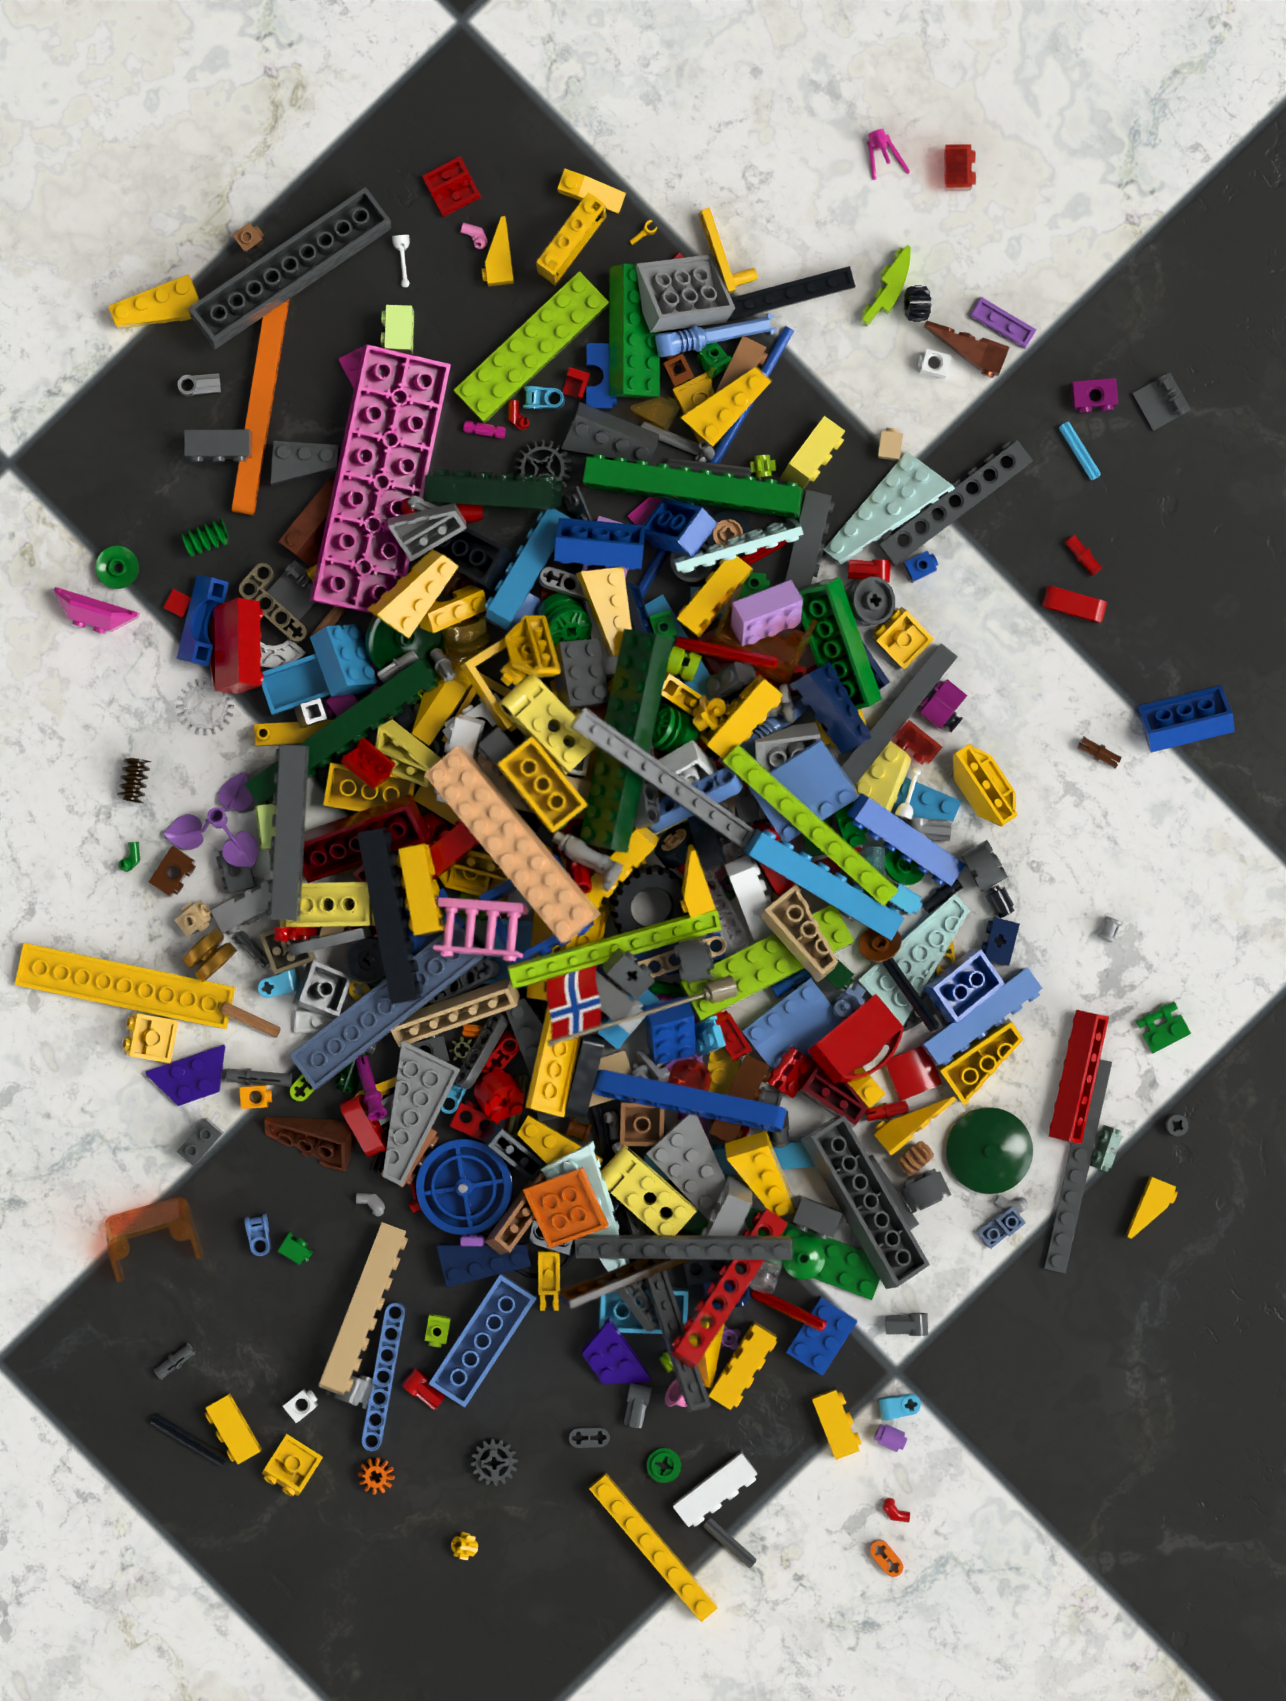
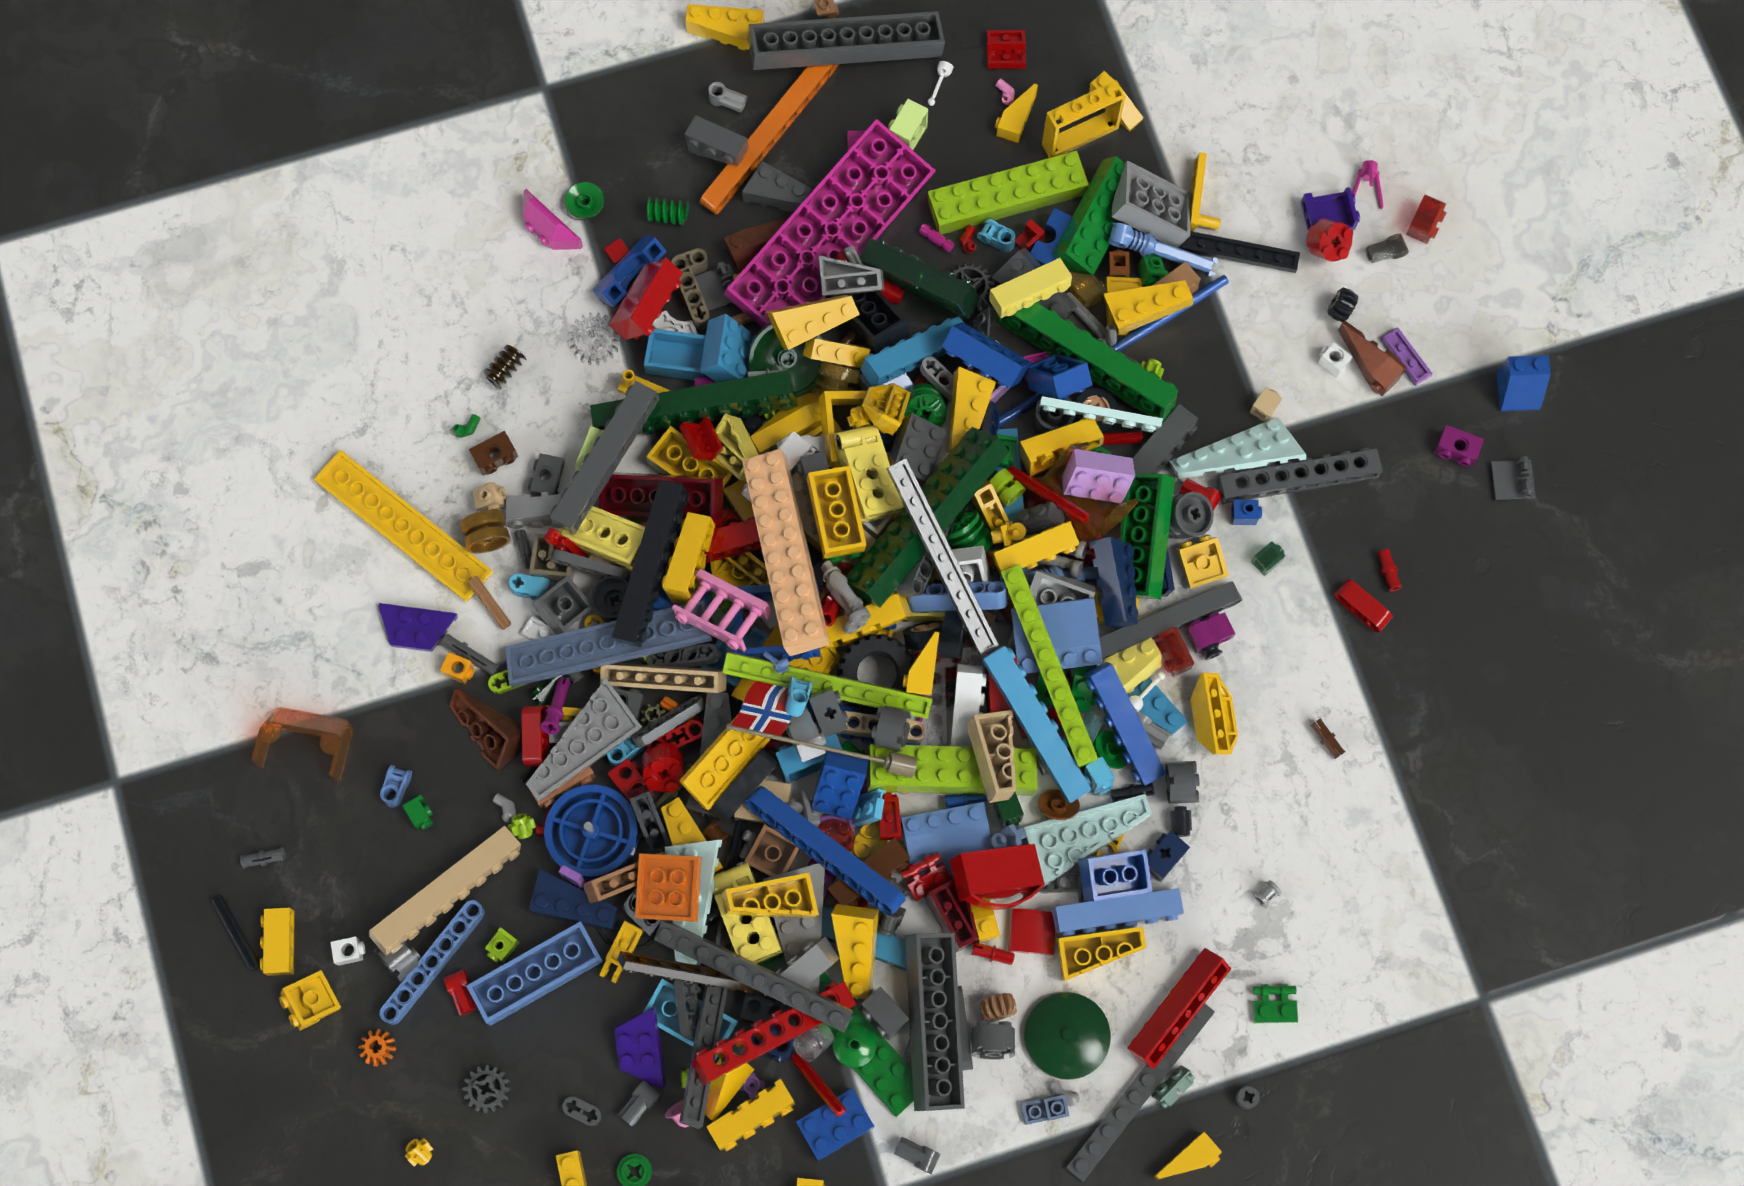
camera: 25 degrees right, 15 degrees down
(150, 1037) = (399, 576): yellow plate -> none
(200, 1141) = (390, 682): dark grey brick -> none
(241, 849) = (559, 460): medium lavender plant -> none
(310, 713) = (675, 379): flat silver brick -> none
(396, 1213) = (521, 826): none -> lime gear
(442, 664) = (805, 394): light grey axle -> none
(564, 956) = (780, 665): none -> medium blue hand
(594, 972) = (797, 696): none -> medium azure piece
(609, 451) = (1030, 288): none -> light yellow brick
(643, 233) = (1146, 153): yellow hand -> none
(670, 1168) = (775, 898): none -> yellow wedge
(814, 453) = (1201, 378): light yellow wedge -> none
(860, 206) = (1332, 206): none -> dark purple panel
(874, 241) = (1329, 240): none -> red brick
(894, 279) = (1328, 283): lime slope -> none
(900, 1130) = (1000, 975): yellow wedge -> none
(911, 995) = (1064, 860): black axle -> none
(936, 215) = (1392, 247): none -> clear smoke piece
(964, 601) = (1268, 558): none -> clear green brick
(1079, 450) = (1424, 485): medium azure axle -> none
(1128, 301) = (1523, 382): none -> blue slope
(1186, 718) = (1418, 747): blue slope -> none

